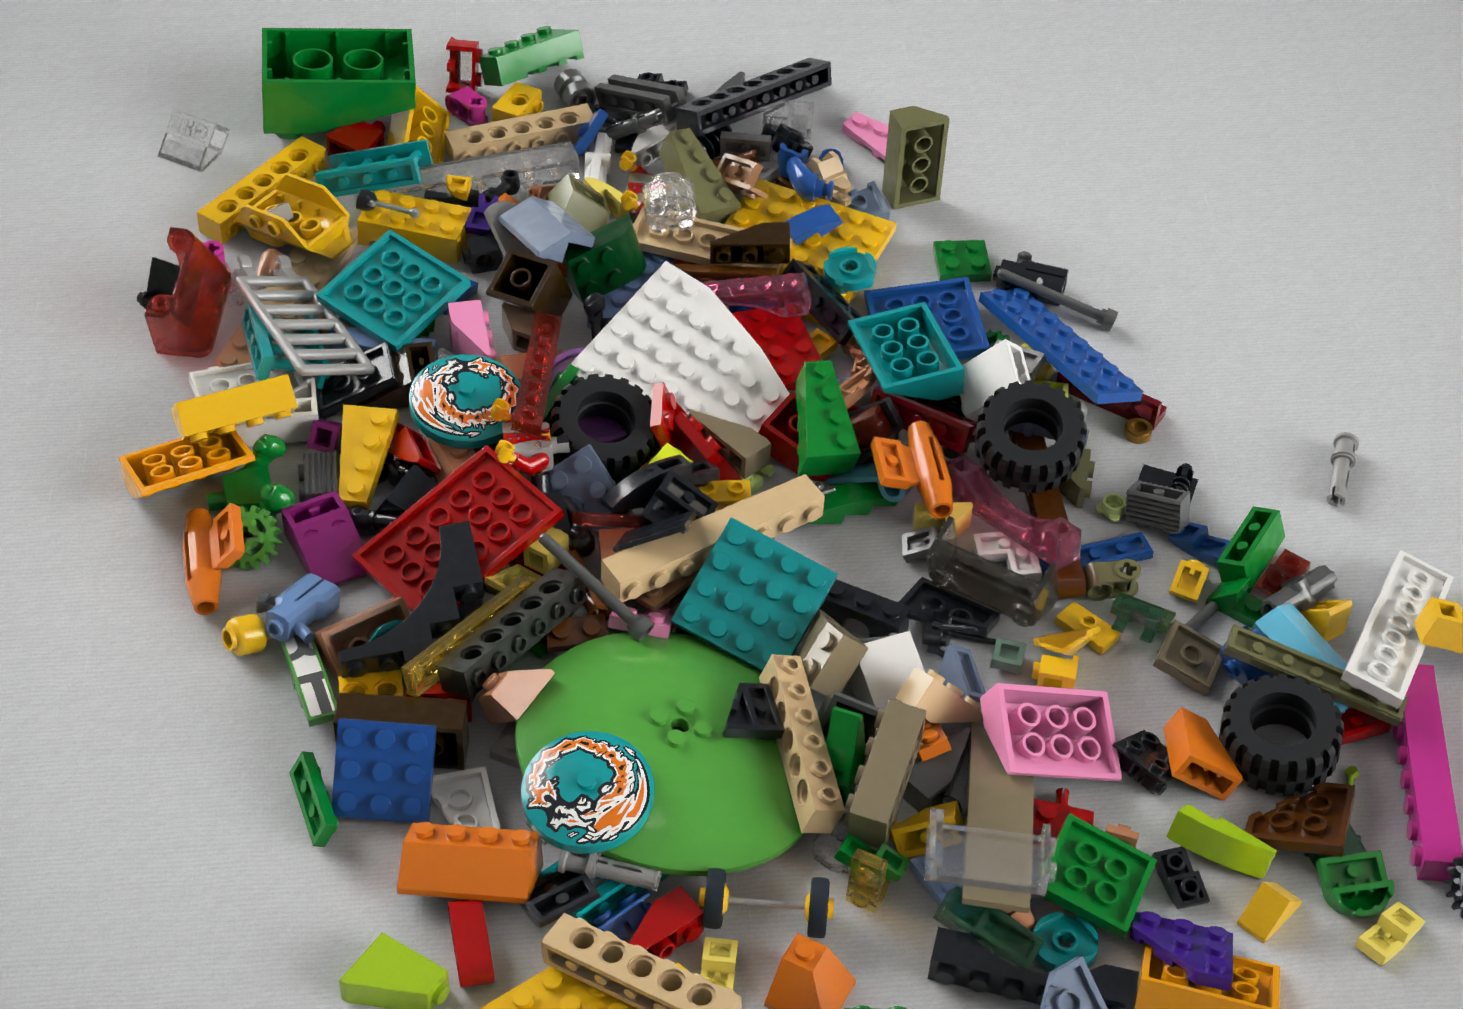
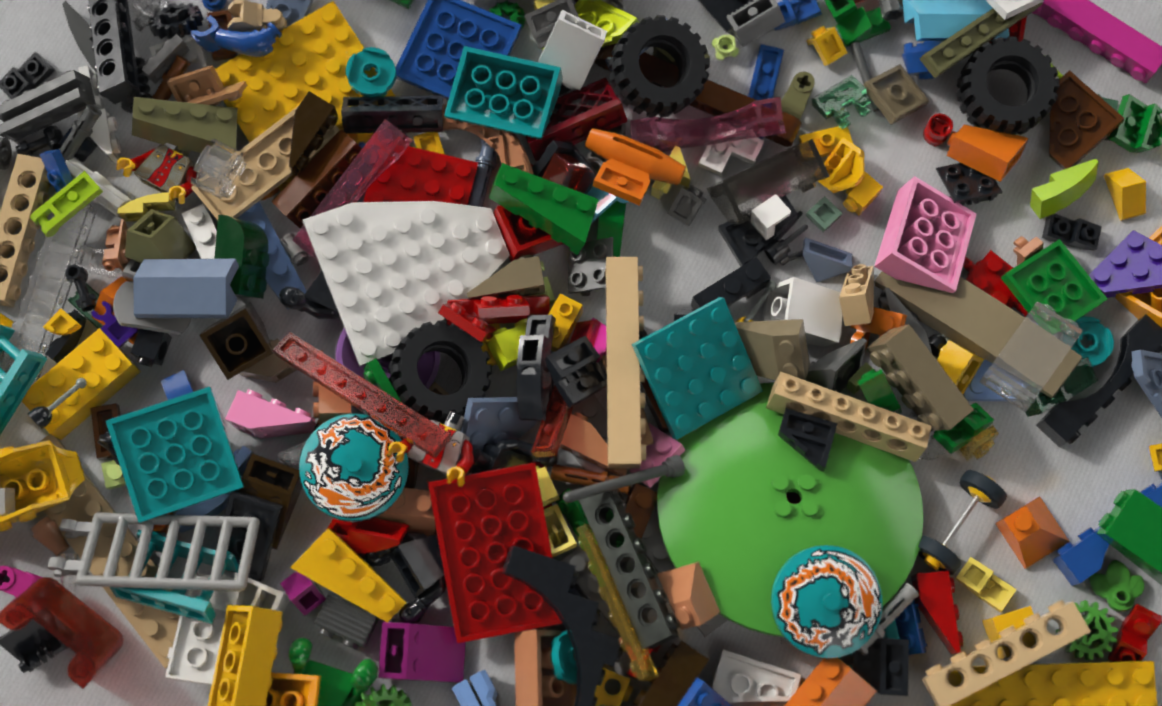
camera: 55 degrees left, 30 degrees up
(565, 142) = (66, 203): none -> lime plate
(655, 531) = (602, 406): black container -> none
(818, 219) = (299, 67): blue slope -> none
(961, 593) = (768, 215): none -> white panel
(1184, 697) = (940, 124): none -> red wheel

